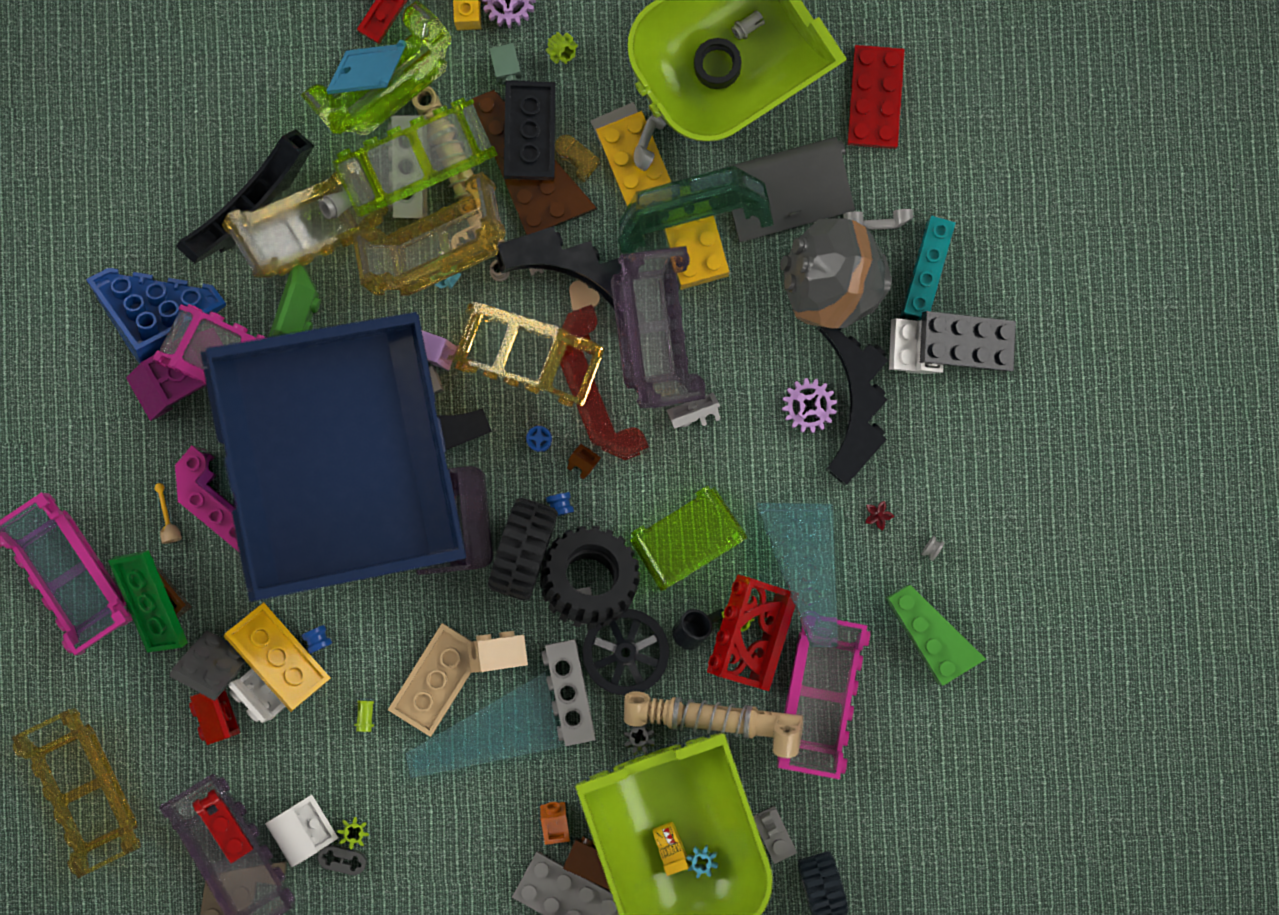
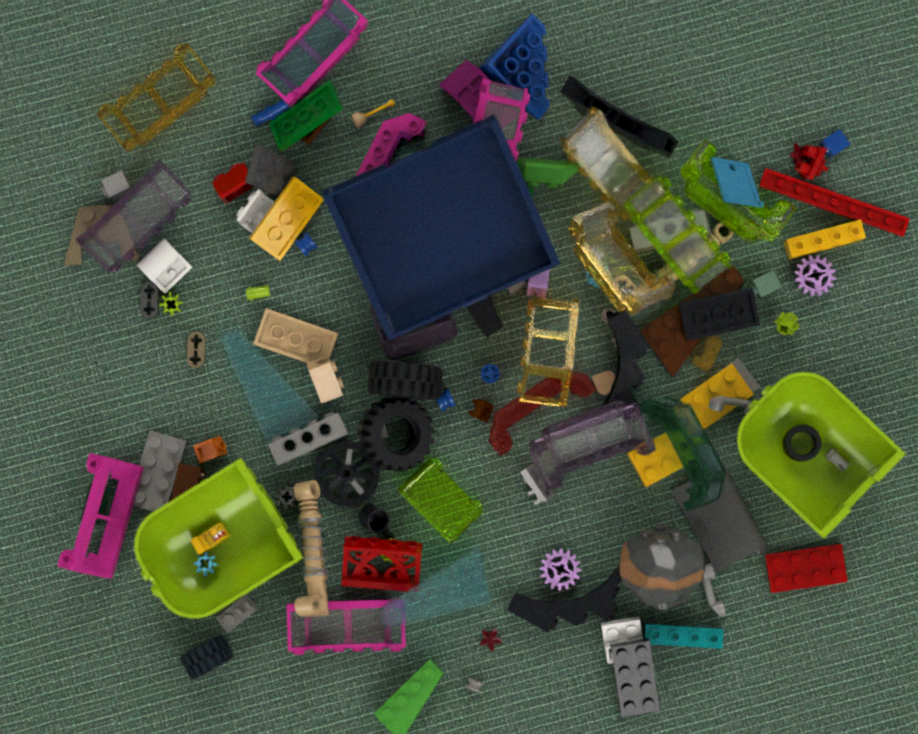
camera: 75 degrees right, 0 degrees up
(133, 648) = (269, 112): none -> blue pin
(180, 872) = (115, 185): none -> light grey brick
(223, 826) = (155, 209): red plate -> none
(334, 204) = (628, 183): light grey cone -> none
(422, 806) = (191, 349): none -> dark tan beam

